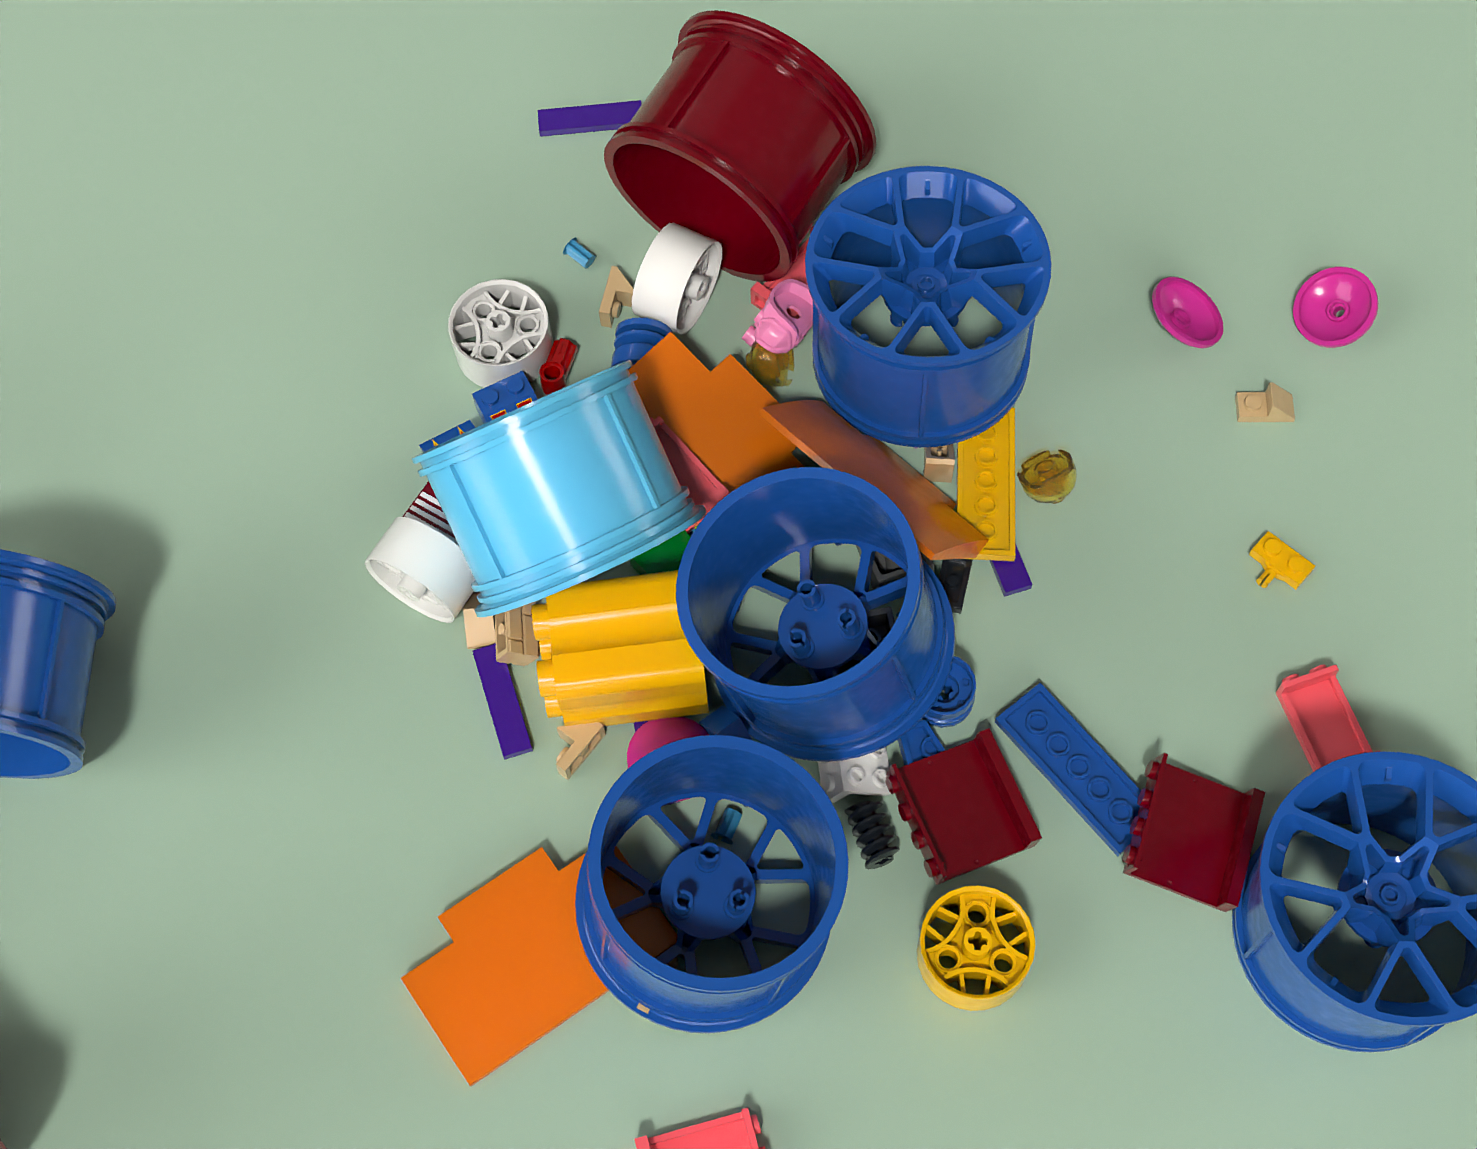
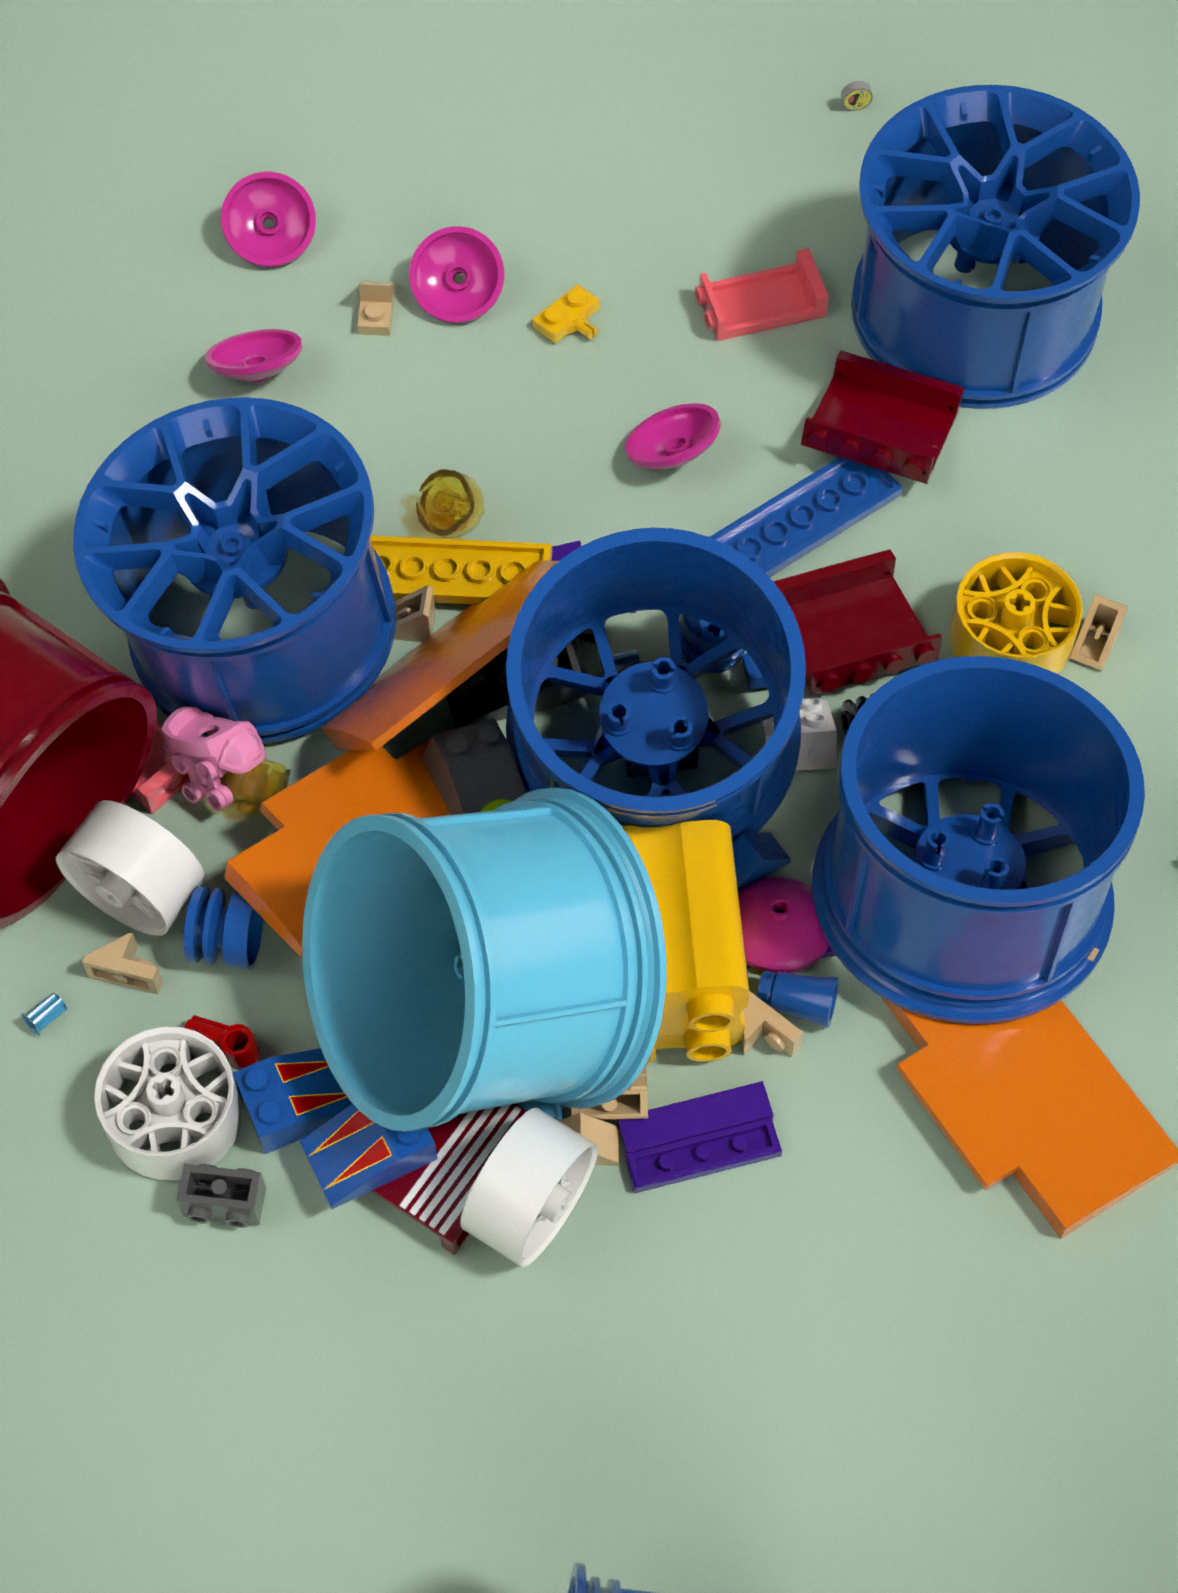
camera: 90 degrees left, 5 degrees down
(434, 378) = (221, 1195): none -> dark grey brick
(473, 708) = (703, 1155): none -> dark purple tile
(602, 770) = (800, 995): none -> blue plant
(975, 1030) = (1099, 632): none -> tan slope
(1145, 649) = (673, 436): none -> dark pink dish
(1291, 450) = (452, 253): none -> dark pink dish

